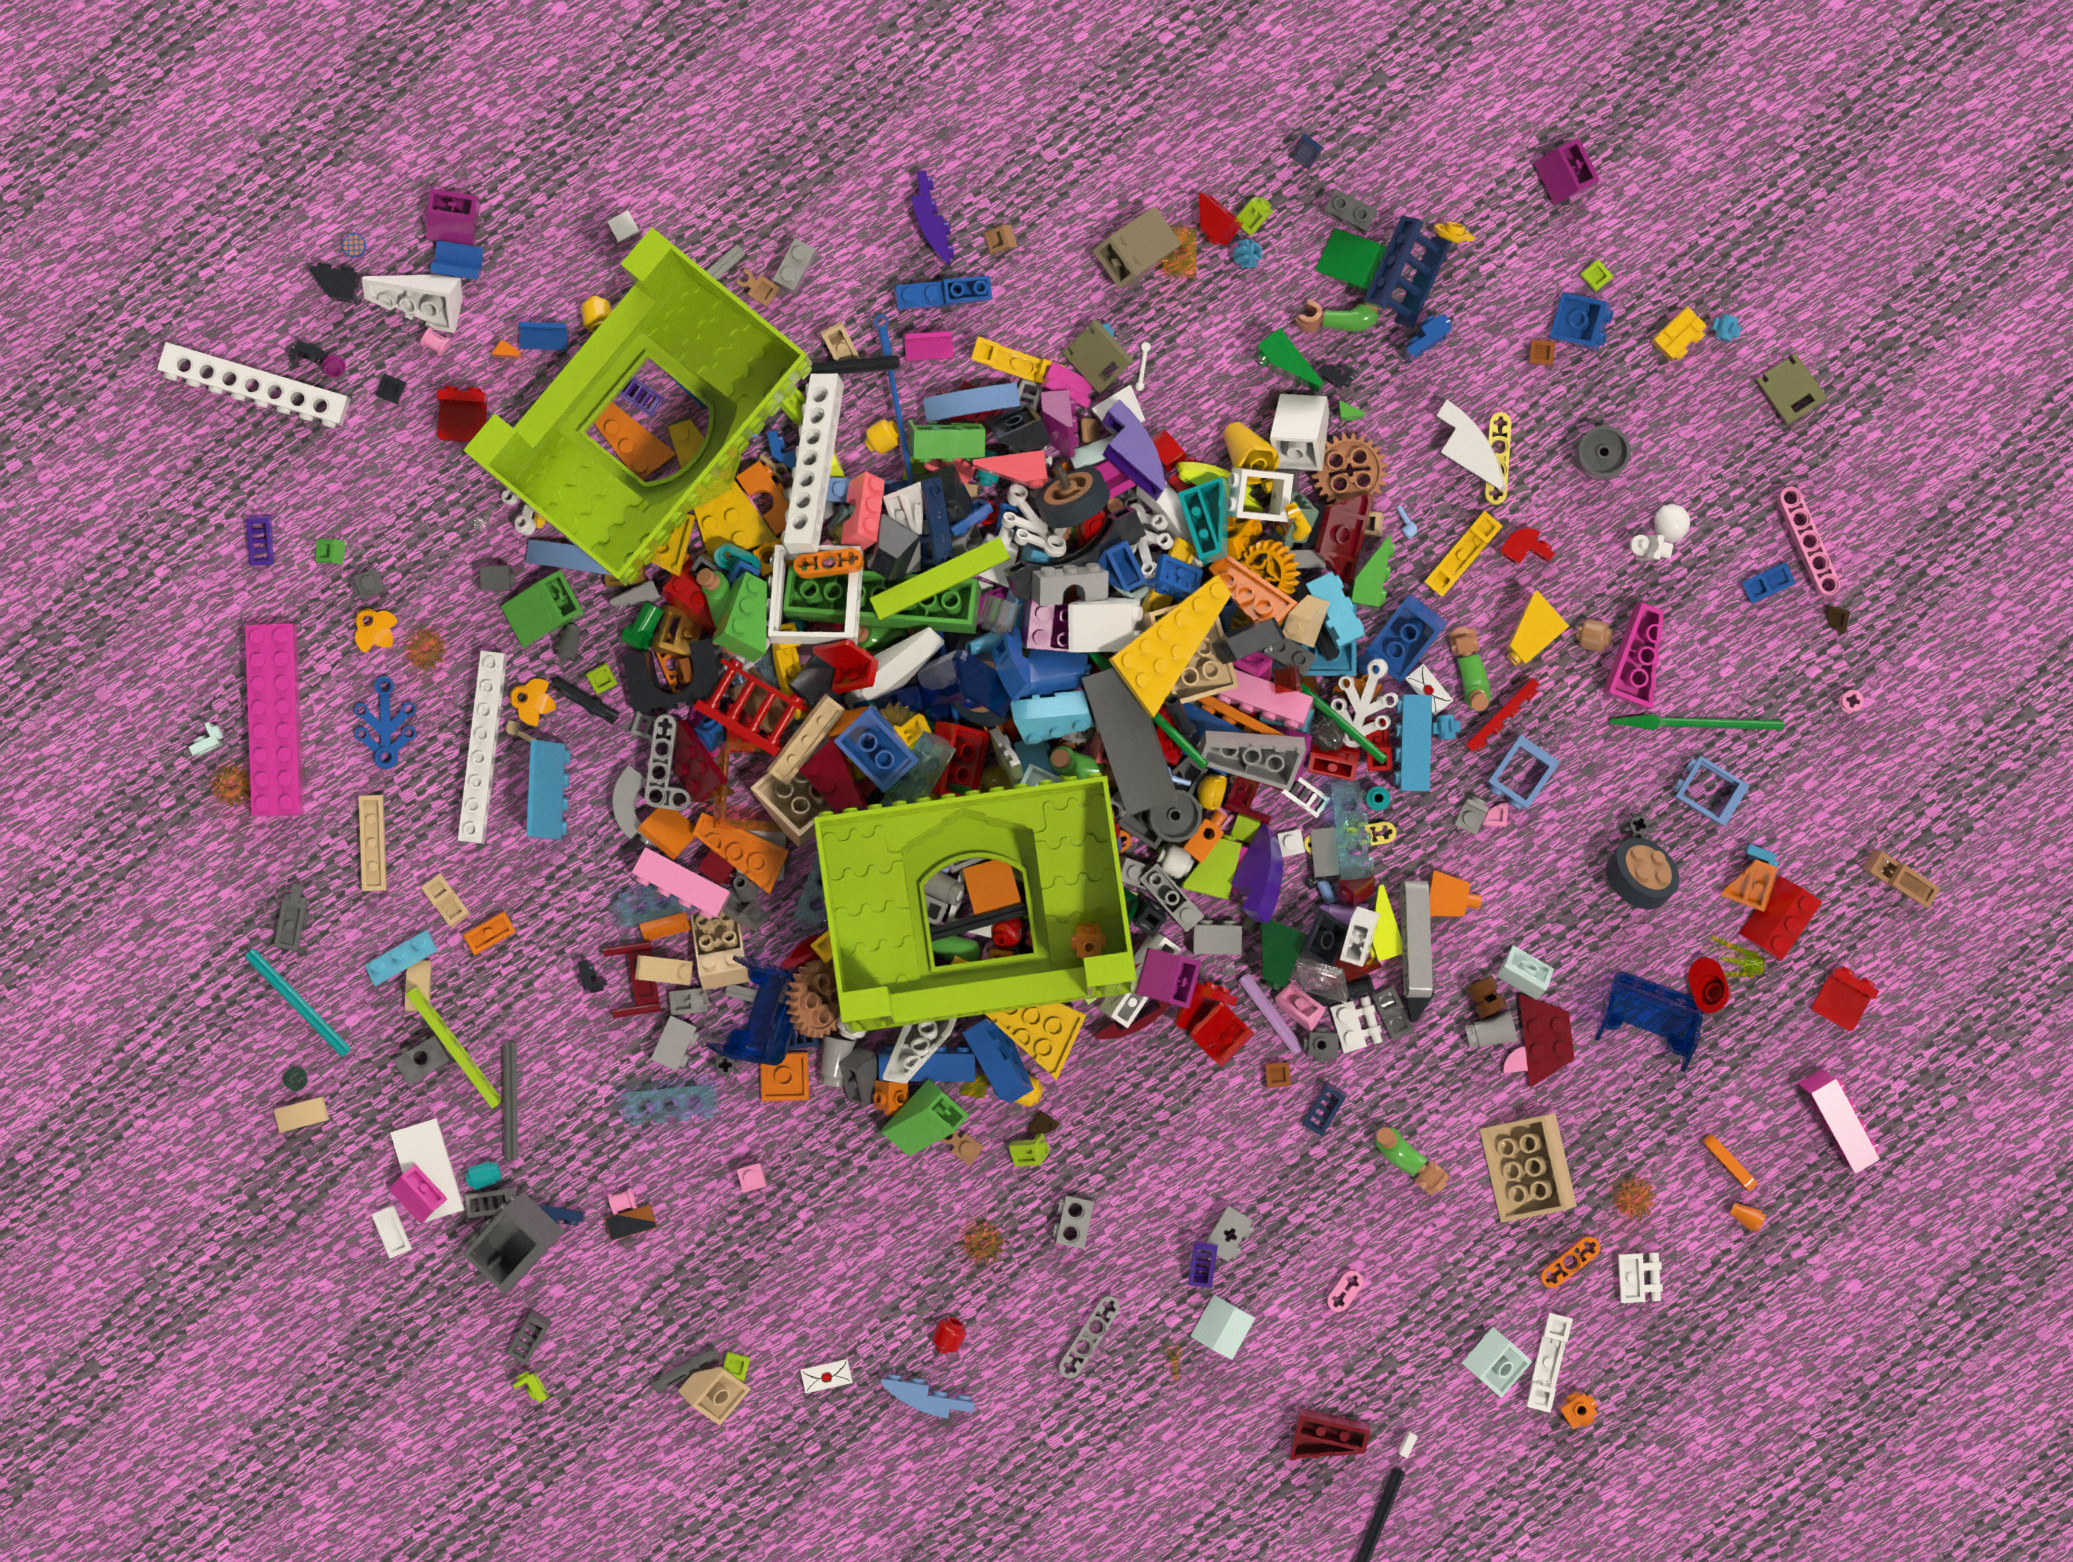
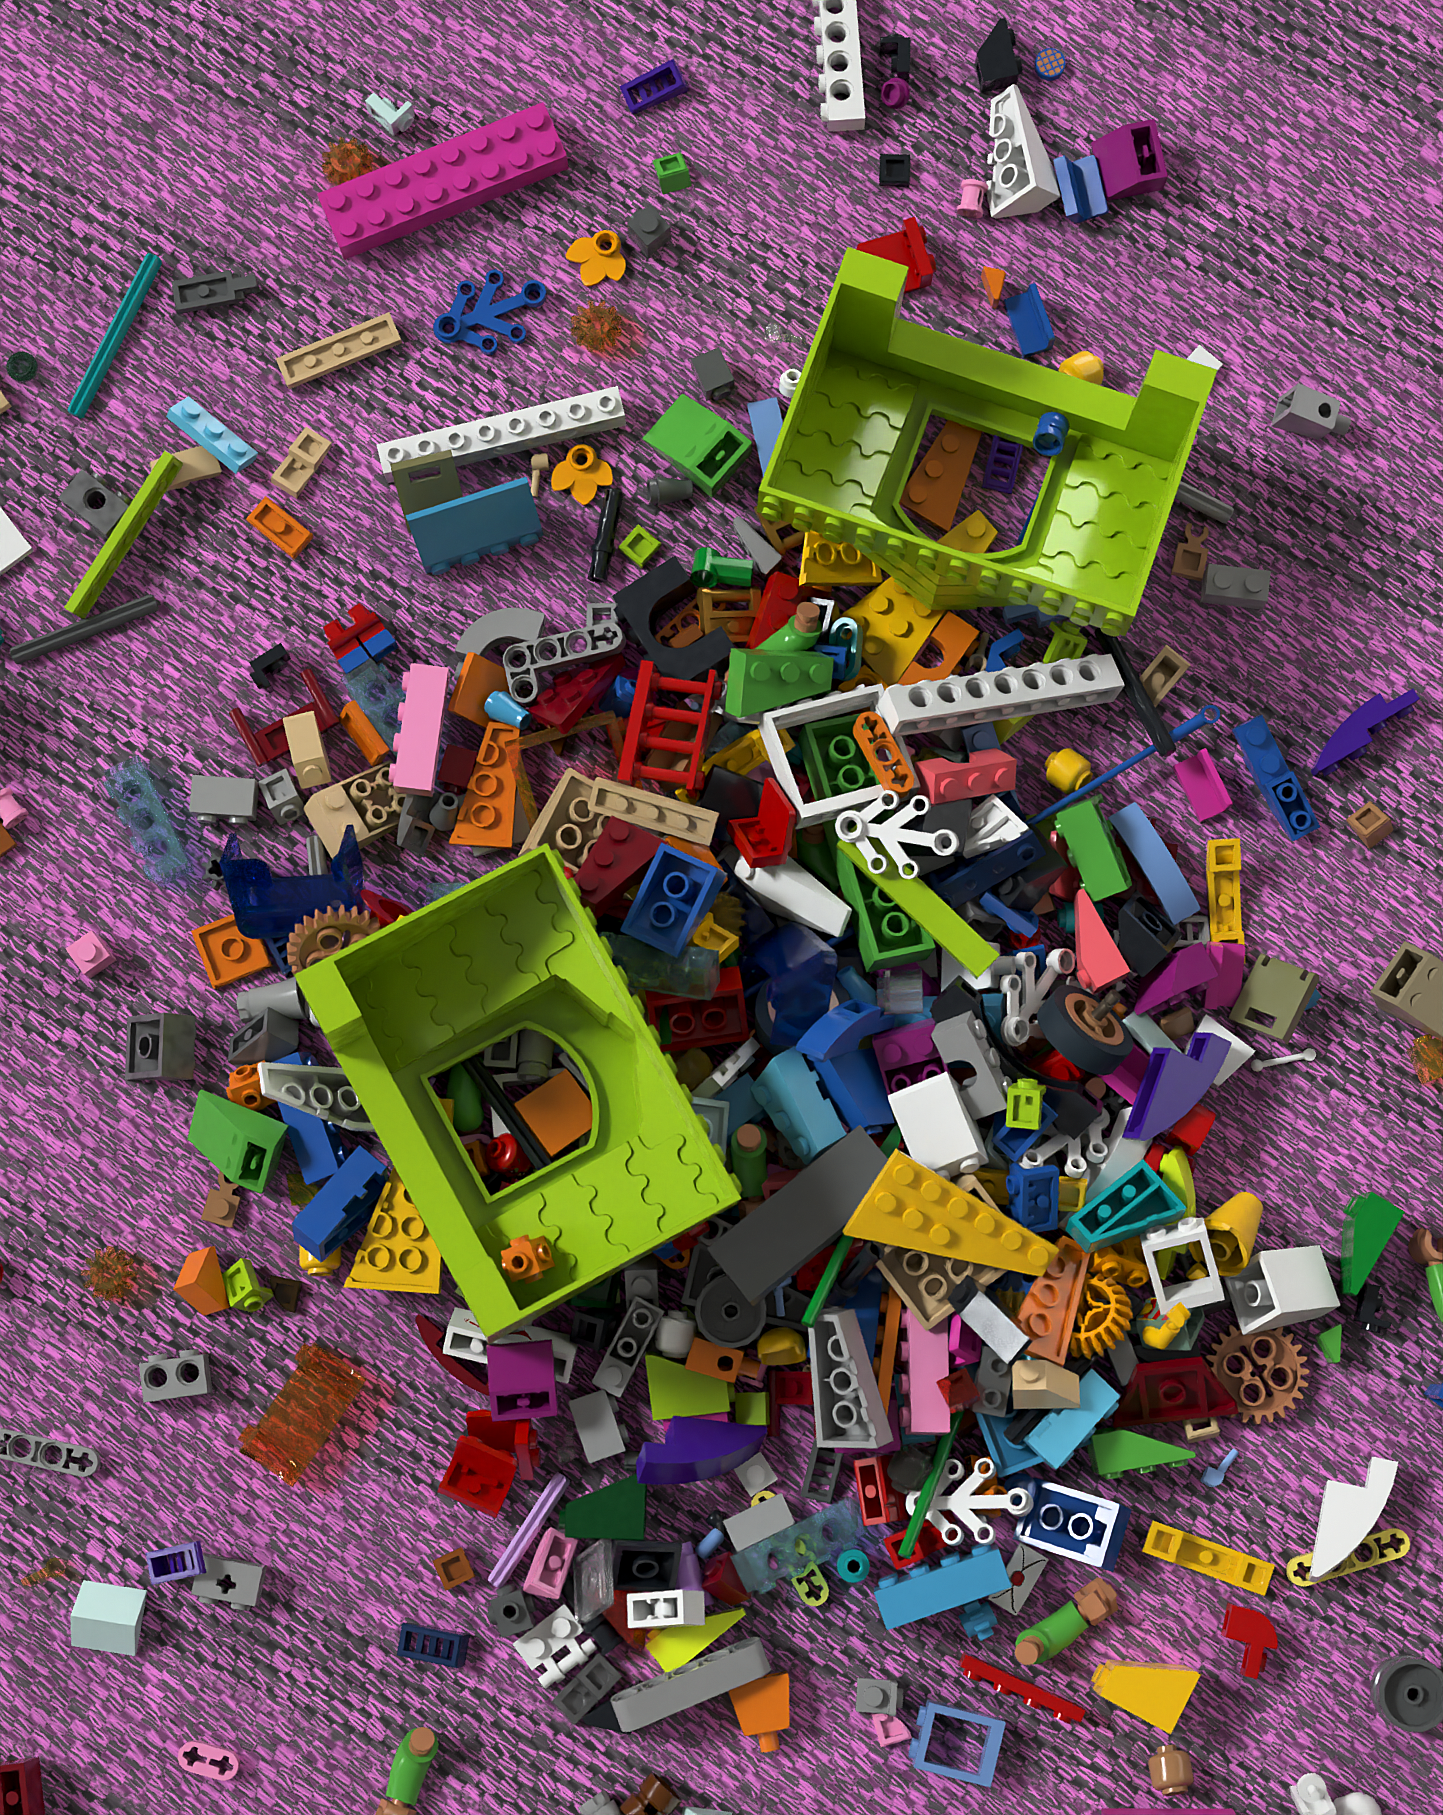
camera: 70 degrees right, 5 degrees down
(510, 817) = (426, 491): none -> olive container
(593, 895) = (367, 630): none -> red hips
(637, 354) = (1051, 433): none -> blue wheel
(689, 163) = (1309, 413): none -> light grey torso
(689, 817) = (506, 709): none -> dark azure cone
(837, 1152) = (160, 1047): none -> flat silver slope
(887, 579) = (891, 833): none -> white plant
(1014, 1179) = (202, 1282): none -> orange slope
(1110, 559) = (1025, 1104): none -> lime bracket
(1132, 1141) = (302, 1413): none -> clear orange piece

